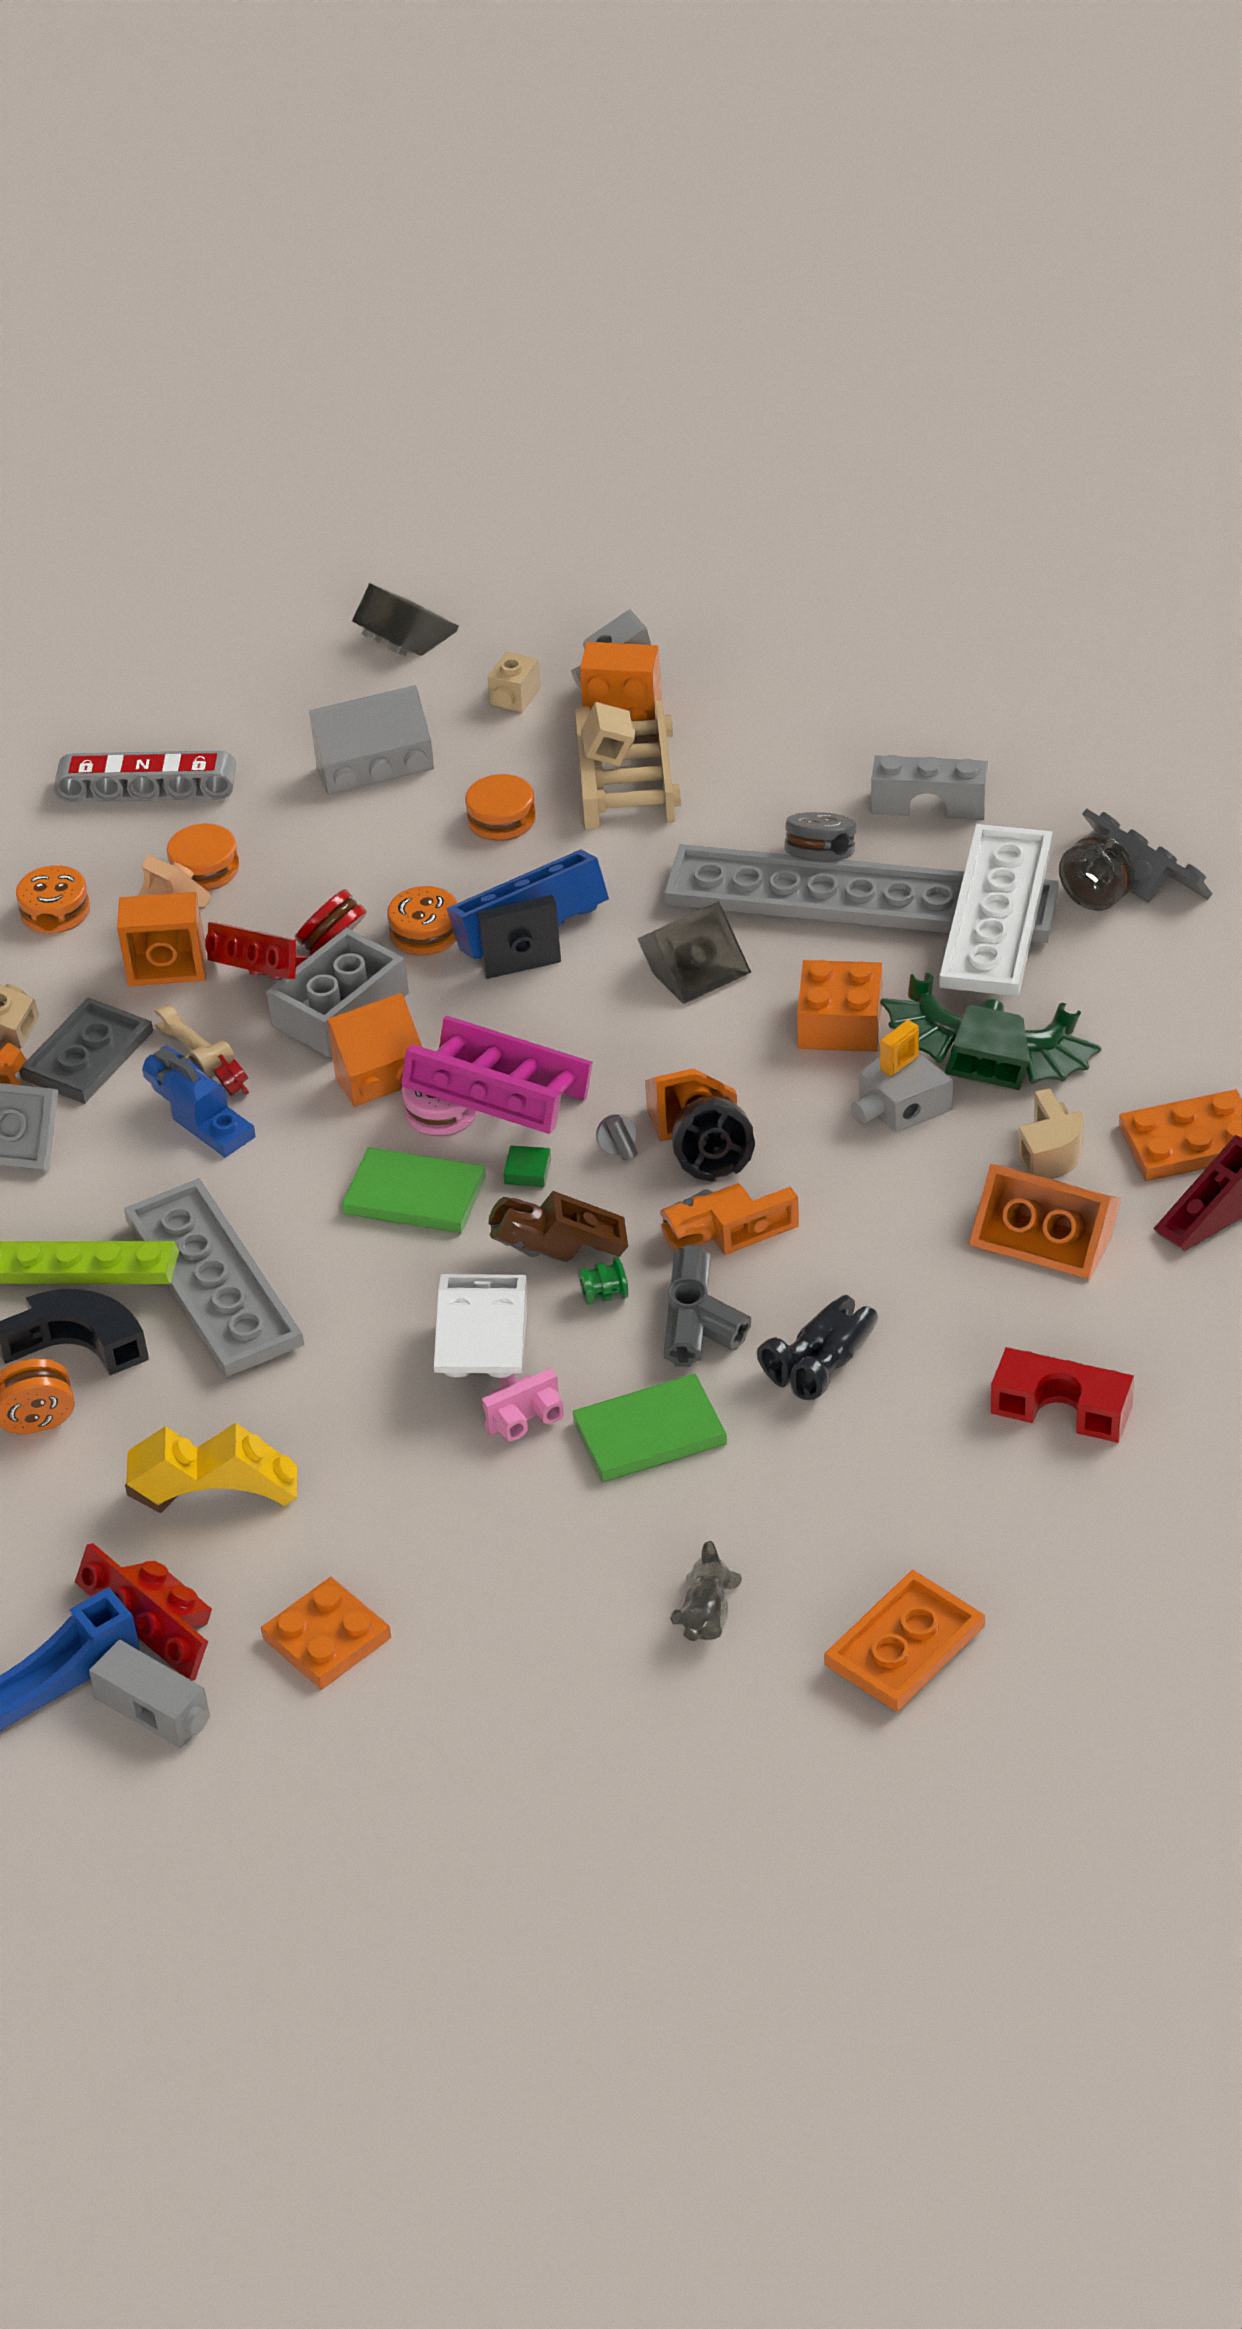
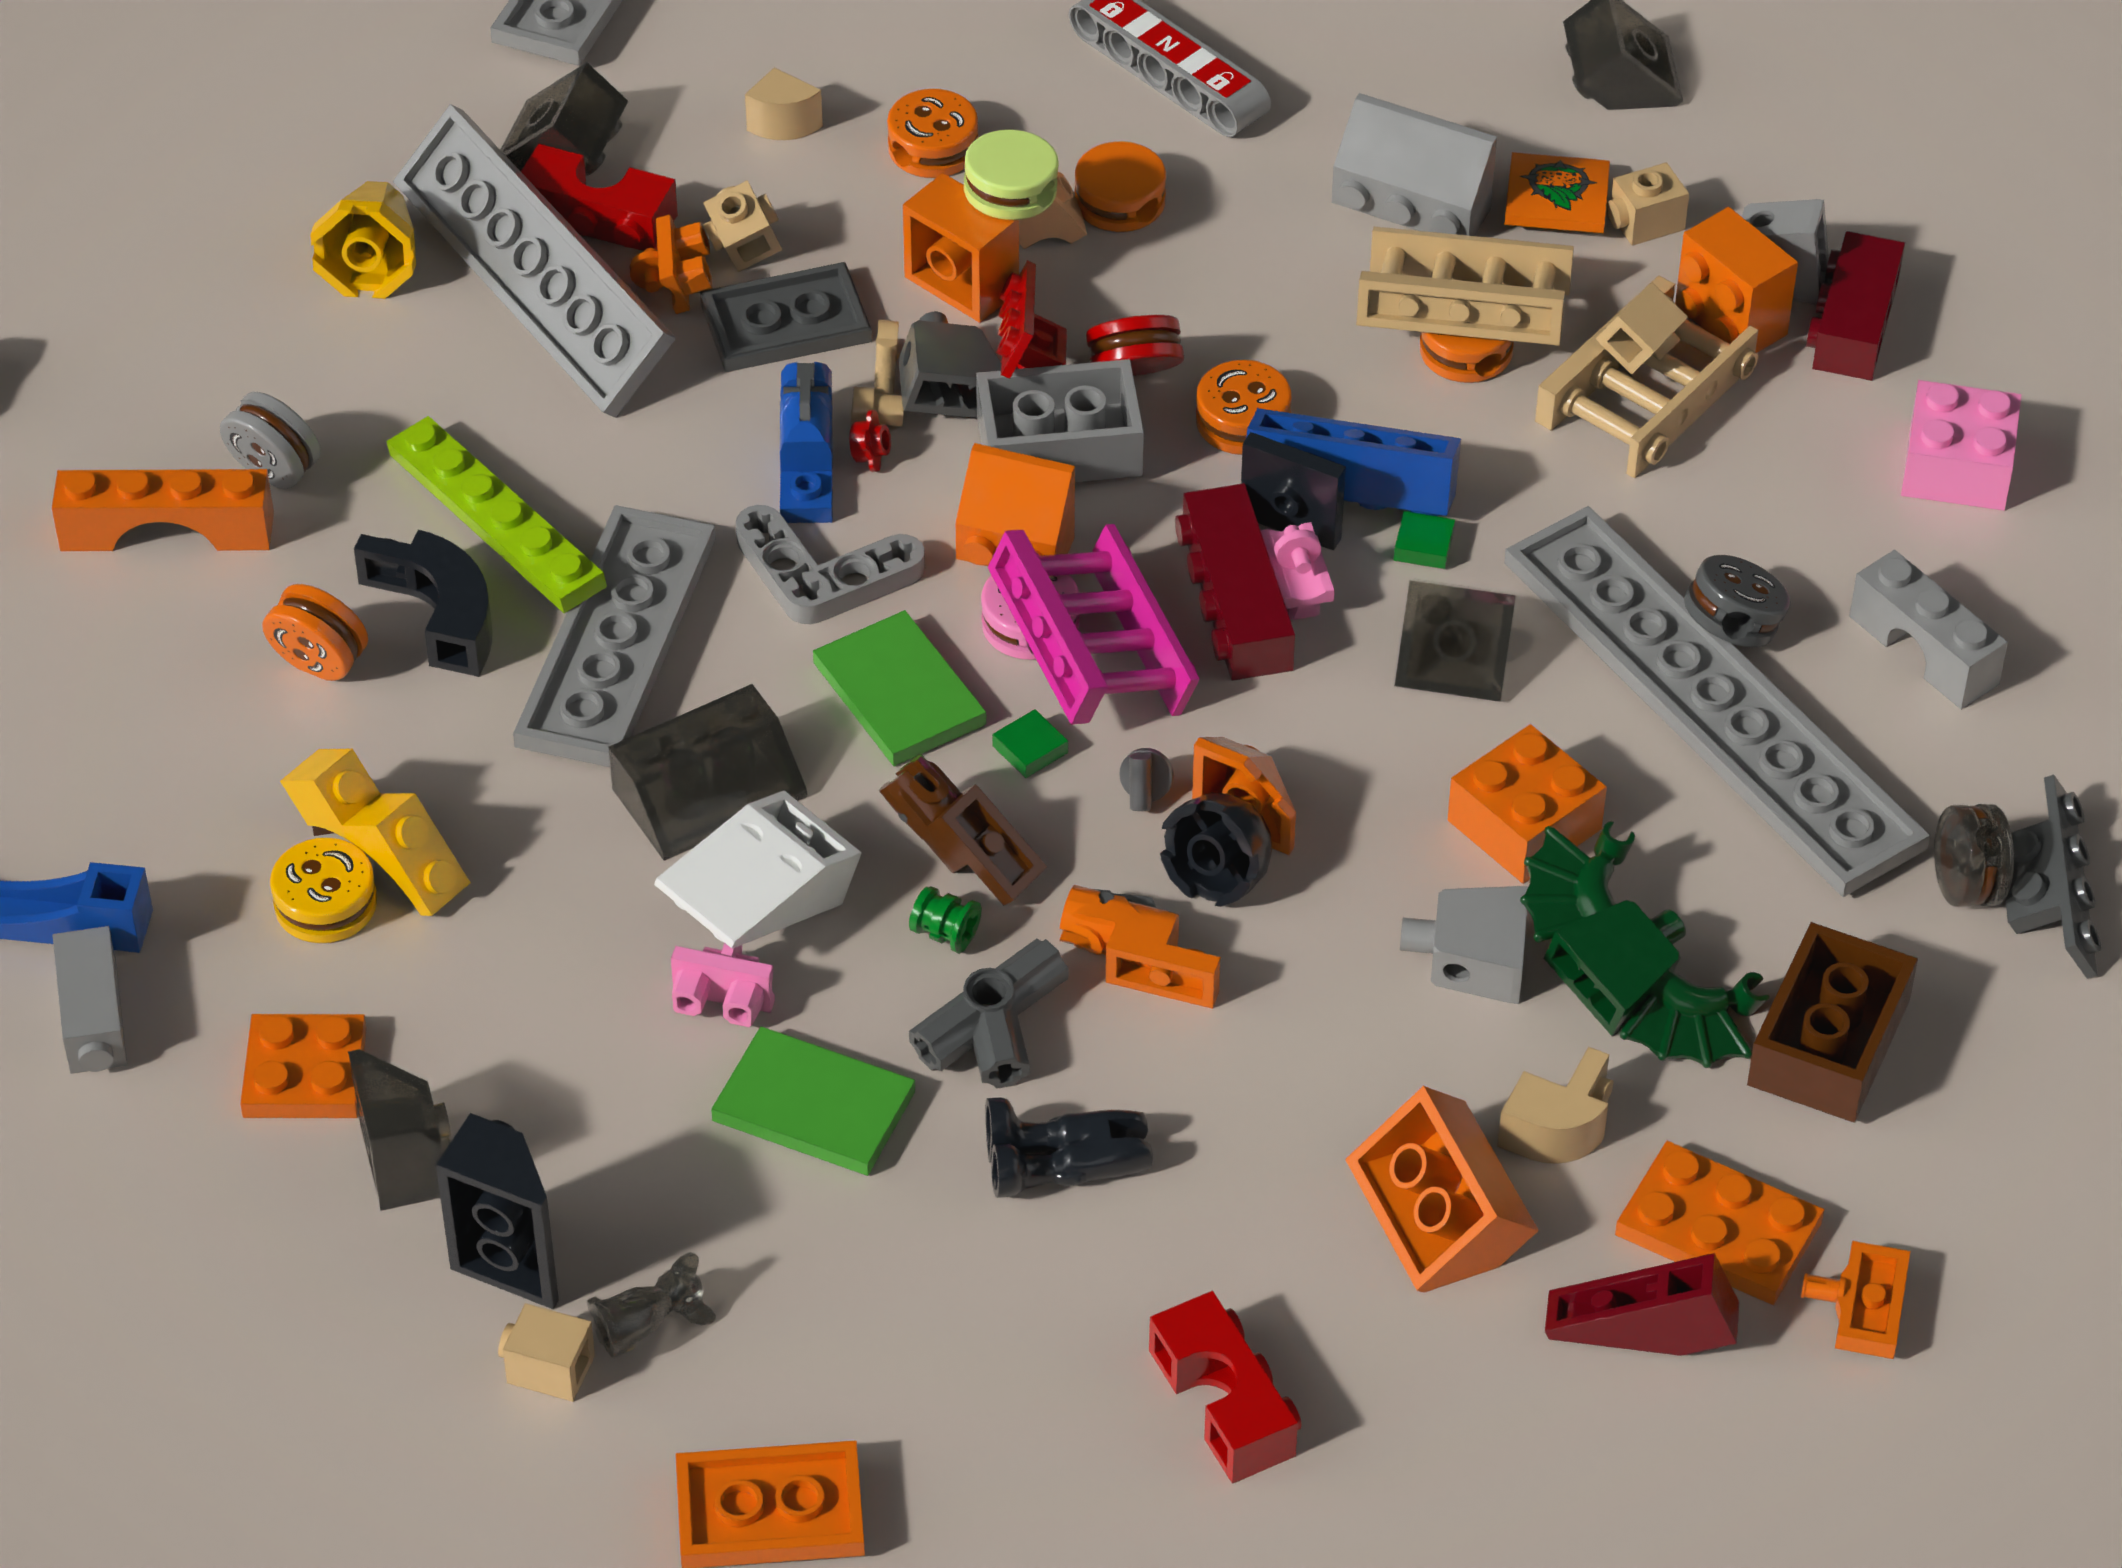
camera: 40 degrees right, 5 degrees up
(159, 1603) = (195, 918): red bracket -> none
(169, 868) = (1010, 174): none -> yellowish green head
(216, 1531) = (323, 890): none -> yellow head
(229, 1007) = (941, 366): none -> dark grey torso
(291, 1177) = (823, 582): none -> light grey beam
(366, 1306) = (703, 769): none -> clear smoke slope
(446, 1611) = (399, 1130): none -> clear smoke slope
(459, 708) = (1557, 192): none -> orange slope
(479, 776) = (1465, 285): none -> tan fence
(539, 1006) = (1236, 582): none -> dark red brick
(565, 974) = (1299, 569): none -> bright pink hips
(584, 1597) = (497, 1211): none -> black slope
(607, 921) = (1424, 540): none -> green tile
(680, 1661) = (547, 1351): none -> tan brick
(691, 662) = (1855, 305): none -> dark red brick
(831, 692) = (1961, 445): none -> bright pink brick
(899, 1048) = (1494, 892): light orange tile -> none
(996, 910) = (1807, 817): white plate -> none
(1132, 996) = (1832, 1022): none -> reddish brown brick

